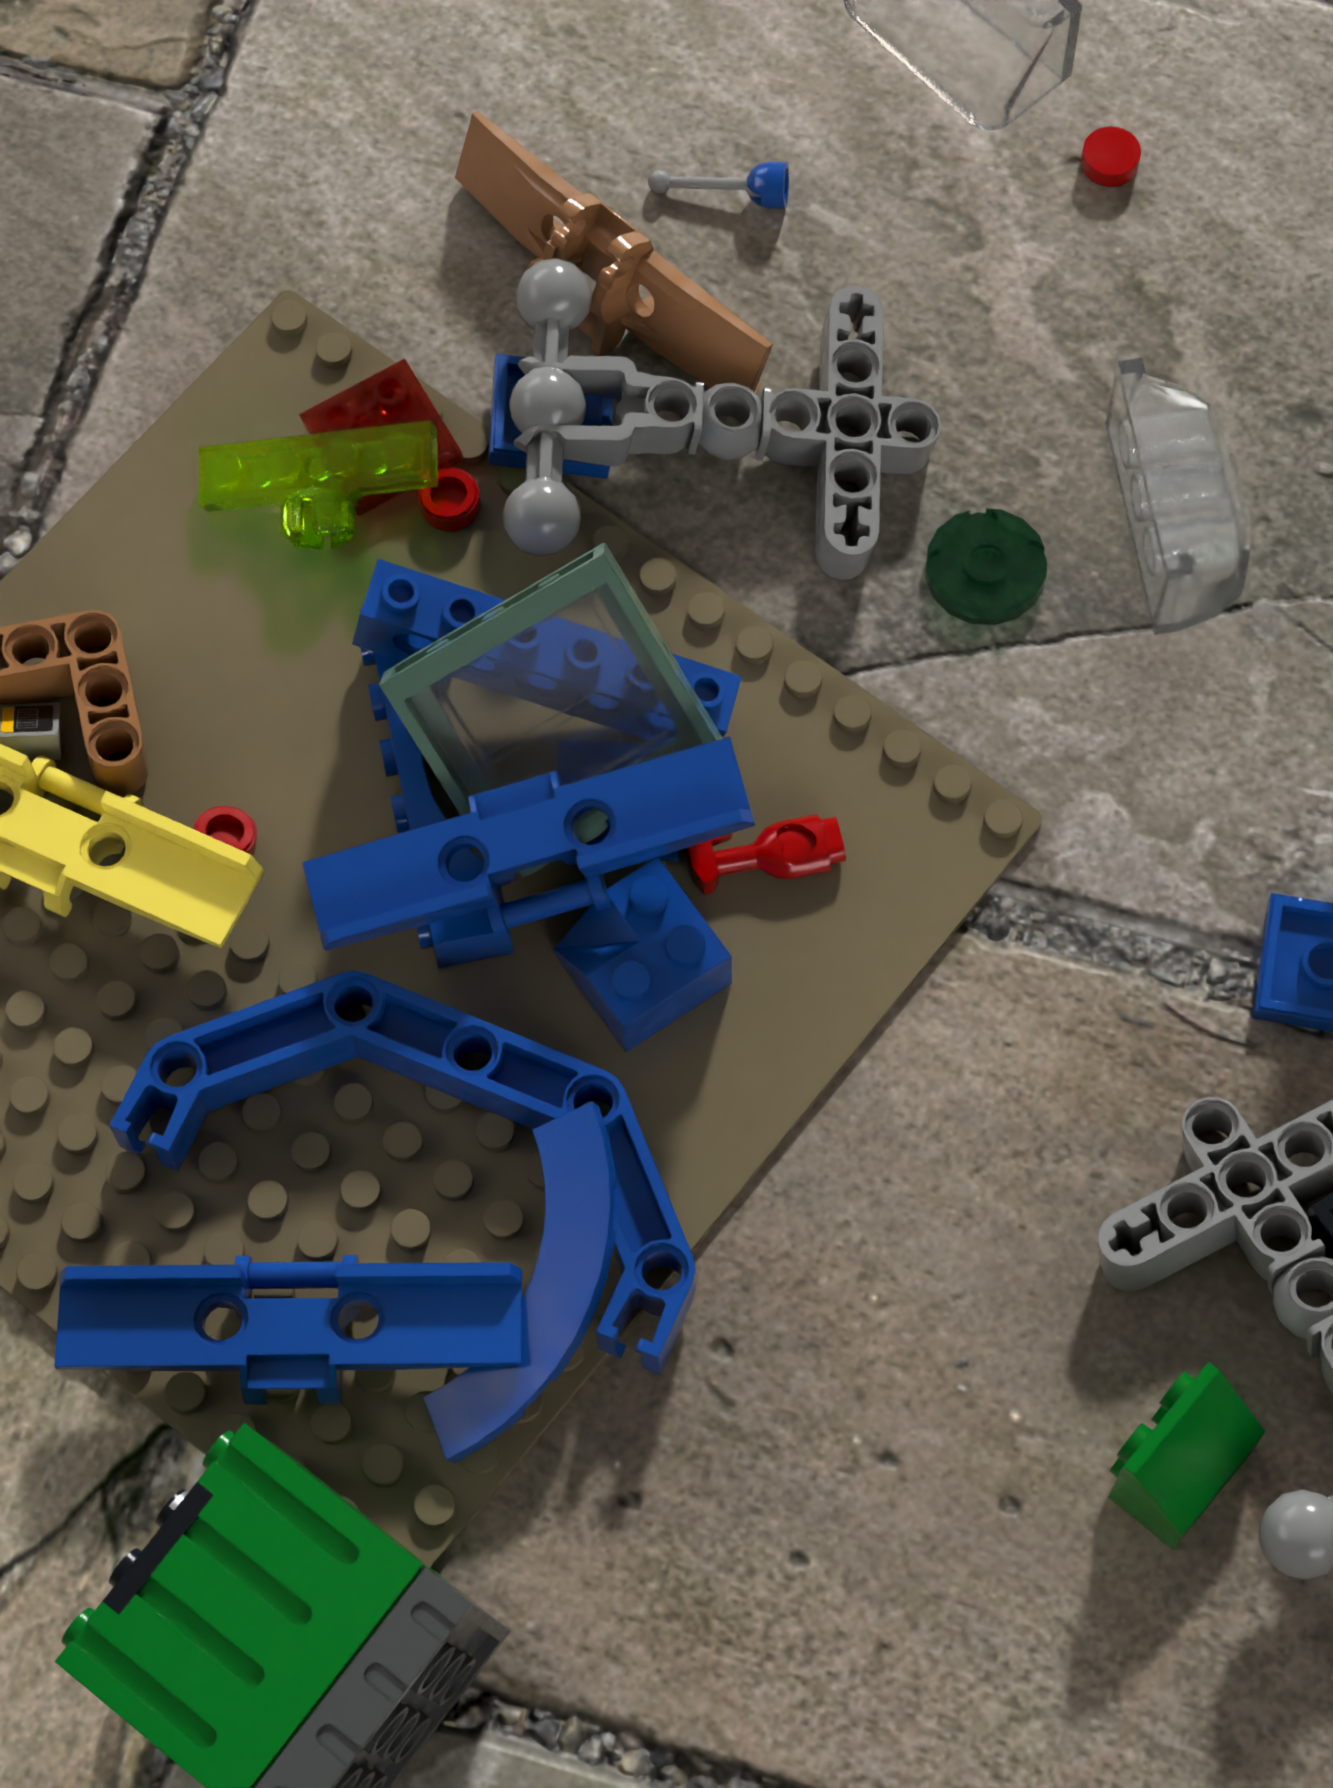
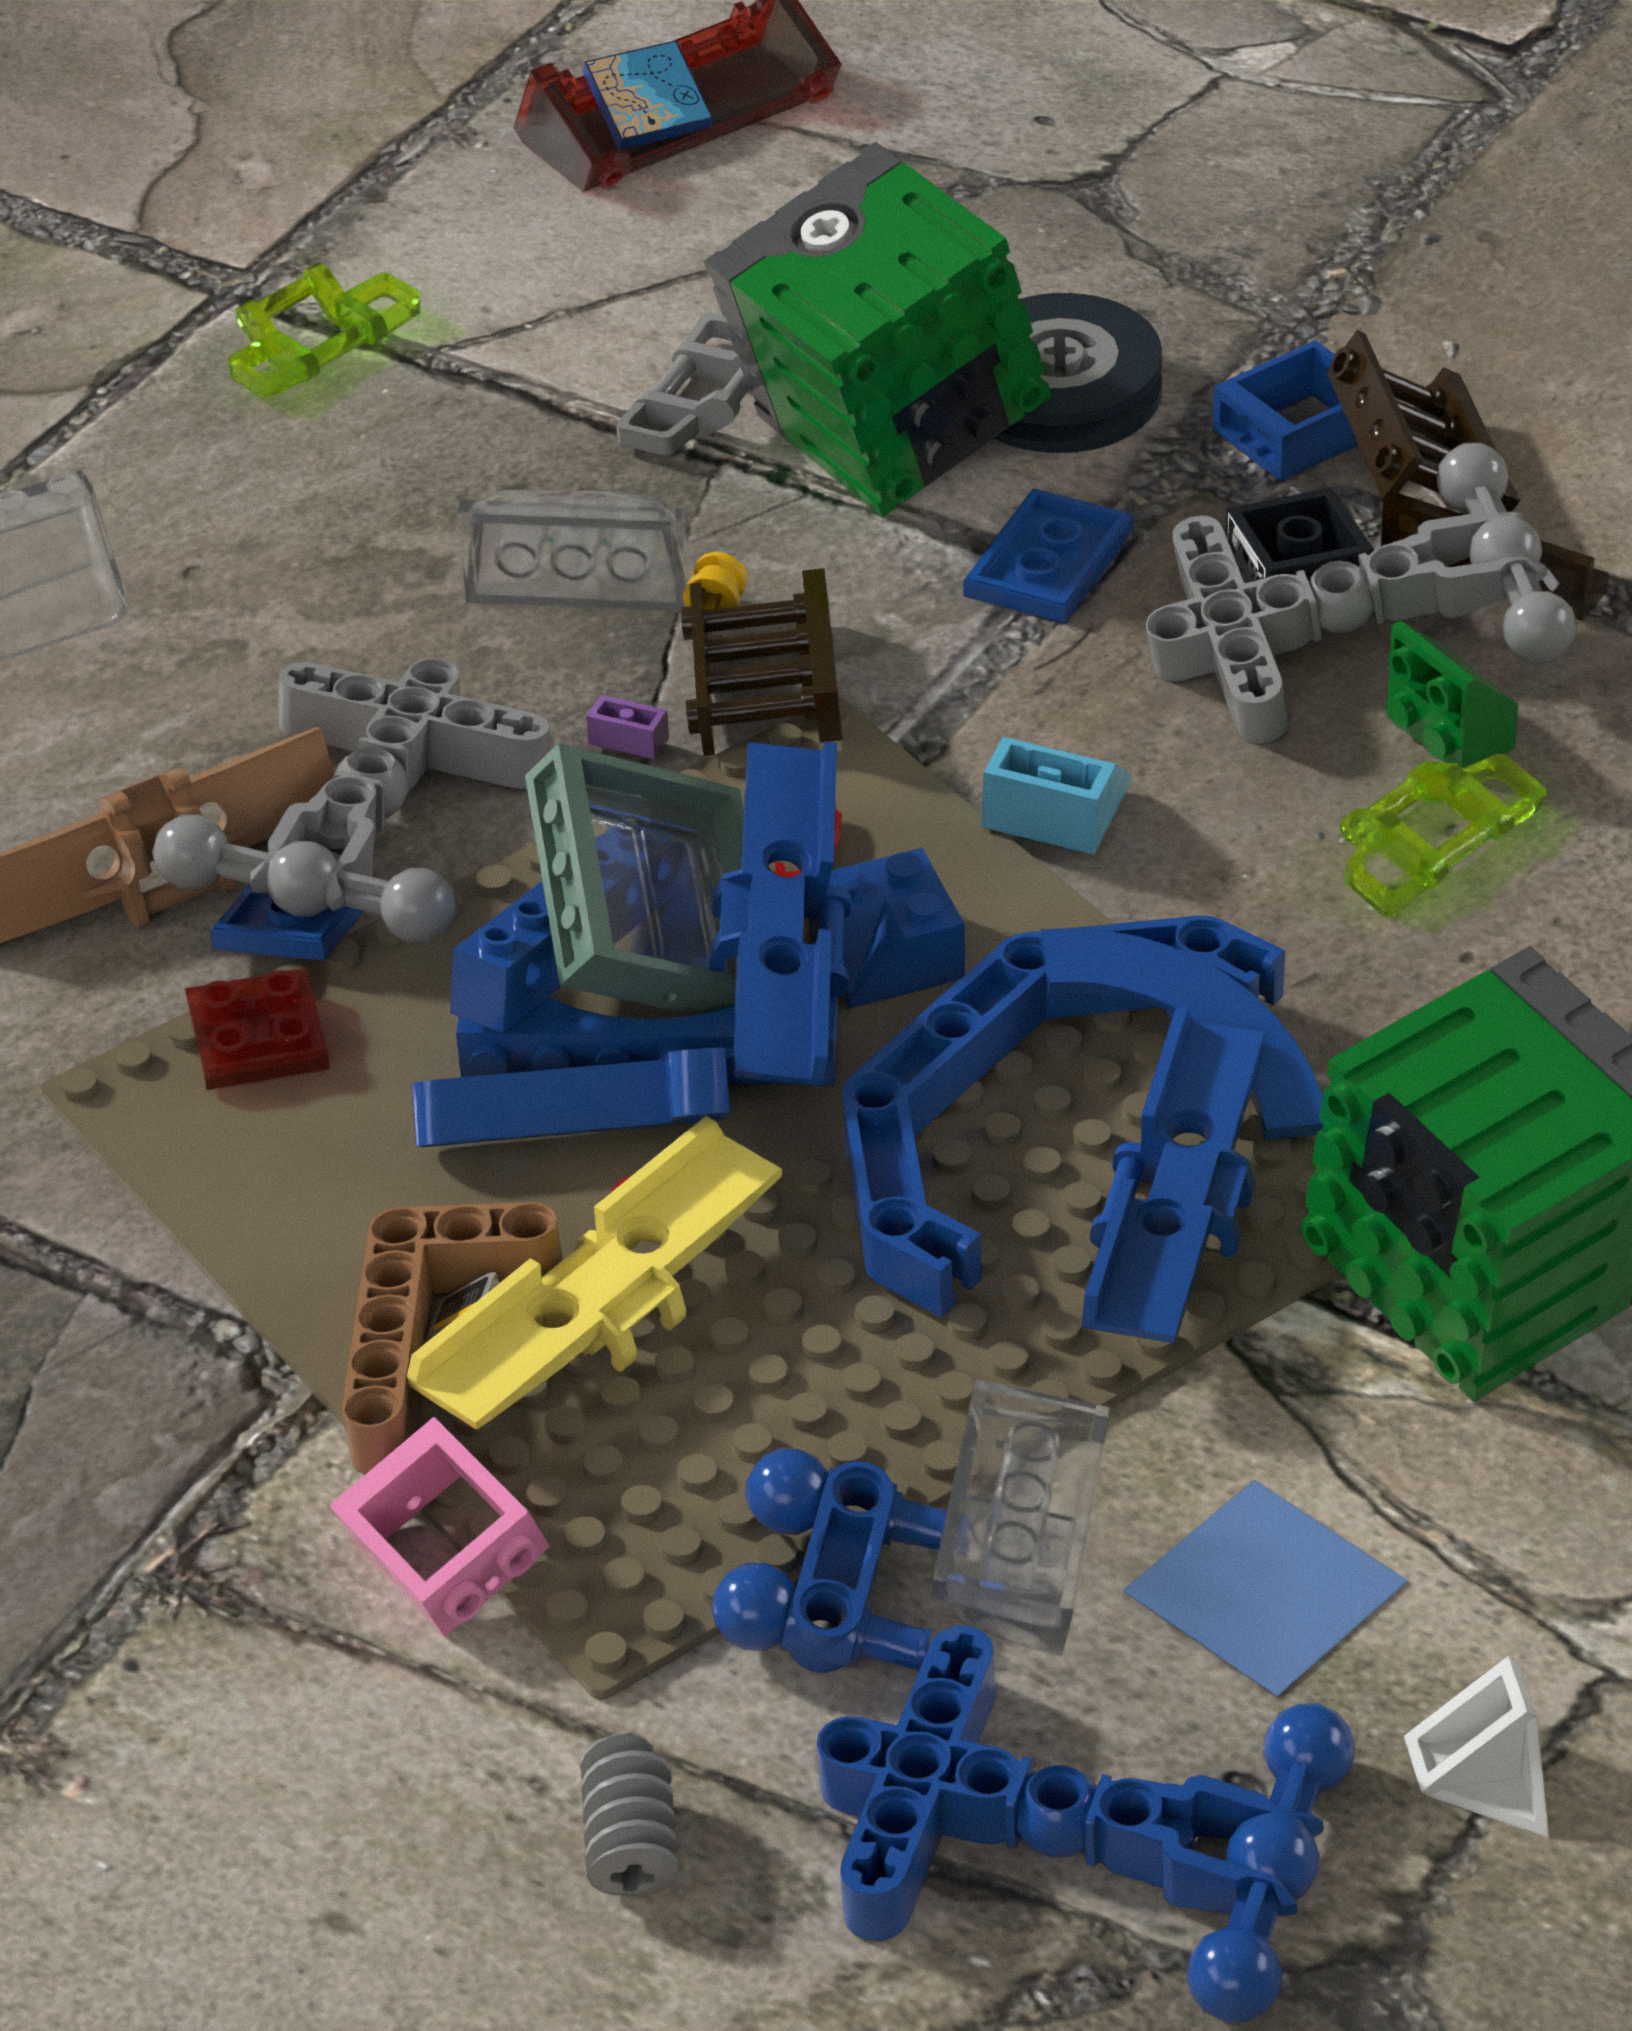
camera: 75 degrees left, 25 degrees down
(318, 476) = (290, 1060): clear neon green plate -> none
(318, 741) = (572, 1100): none -> blue beam
(453, 502) = (347, 996): red tile -> none
(765, 184) = (115, 744): hinge -> none
(919, 629) = (627, 727): none -> medium lavender piece
(921, 1494) = (1461, 788): none -> clear neon green bar
(923, 1068) = (1051, 795): none -> medium azure slope
(986, 566) = (568, 683): clear green tile -> none
(1038, 783) = (813, 670): none -> dark brown fence
(1110, 156) = (201, 543): red tile -> none
(1171, 648) = (721, 579): none -> yellow wheel

